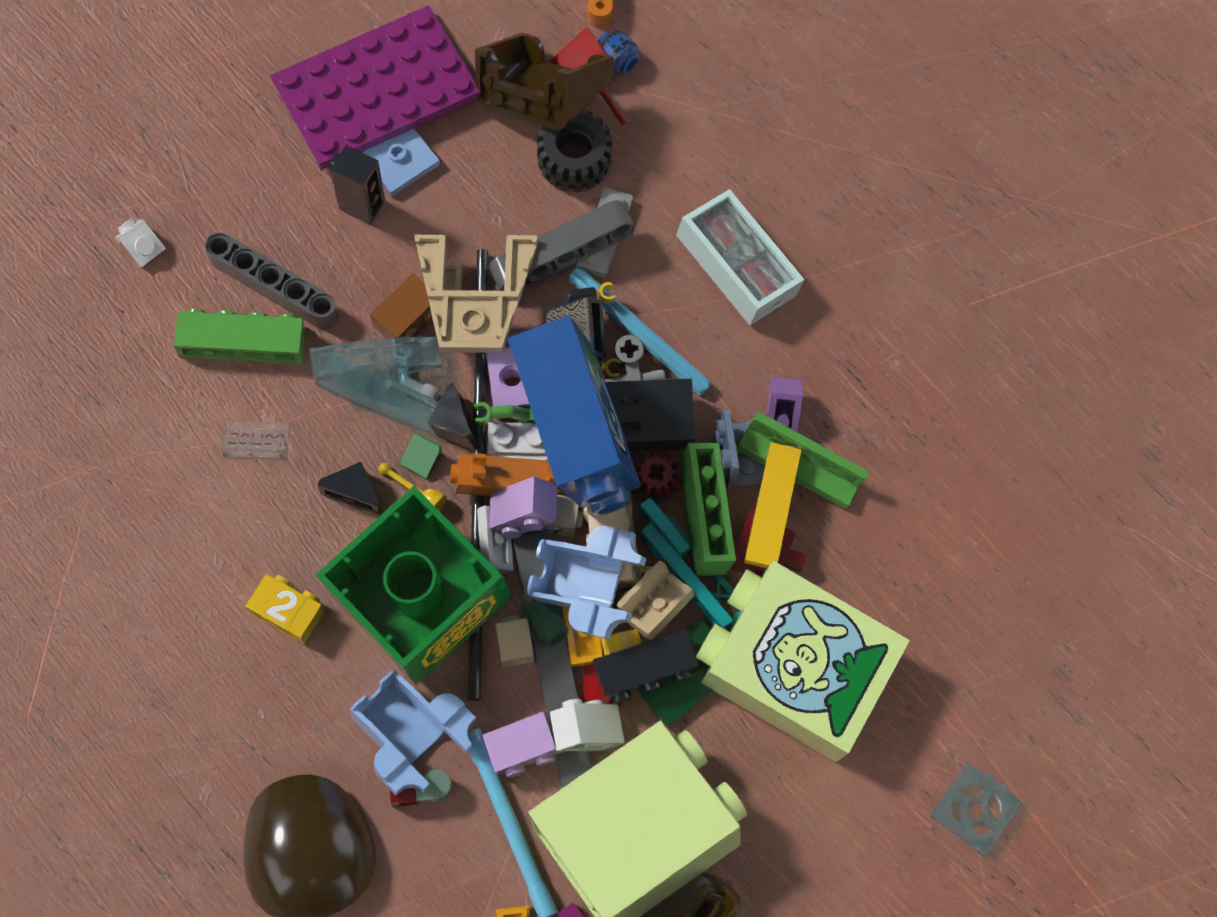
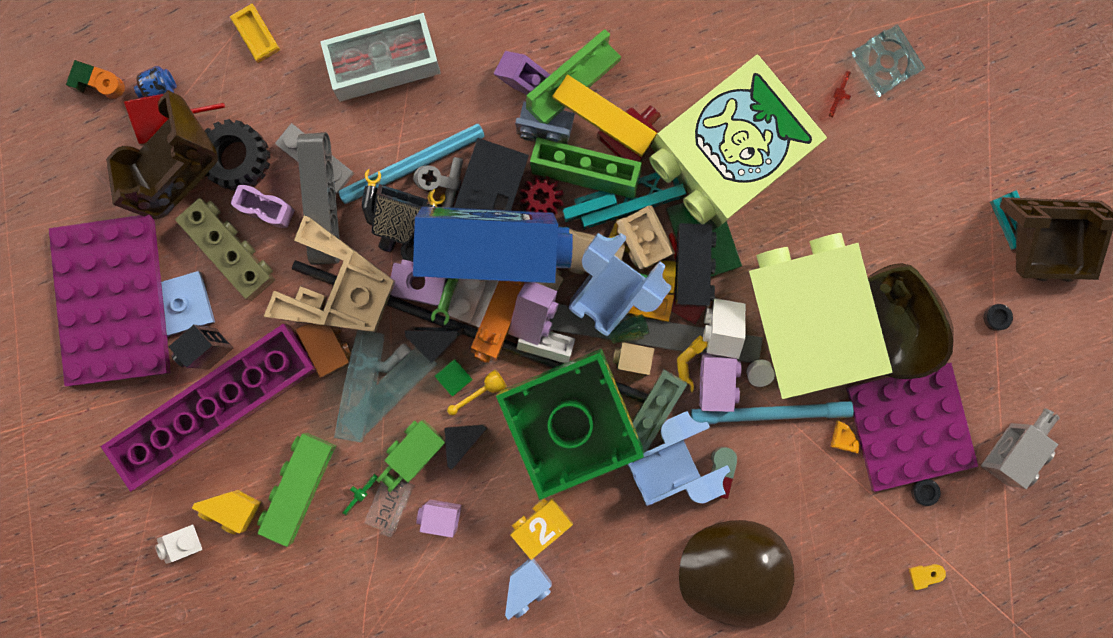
camera: 65 degrees left, 15 degrees up
(194, 279) = (231, 510): none -> yellow slope
(213, 614) = (525, 585): none -> light blue slope
(255, 405) = (359, 494): none -> green piece
(259, 491) = (439, 518): none -> lavender brick
(263, 269) = (243, 450): dark grey beam -> none
(297, 219) = (209, 408): none -> magenta brick
(319, 440) = (411, 454): none -> bright green brick
(468, 685) = (657, 407): none -> sand green plate
(472, 178) = (225, 249): none -> olive brick
(526, 700) = (695, 347): none -> yellow arm
(531, 196) = (262, 206): none -> lavender brick
(548, 786) = (760, 373): none -> white tile
(713, 128) = (255, 33): none -> yellow tile
(911, 767) = (840, 93): none -> clear red piece

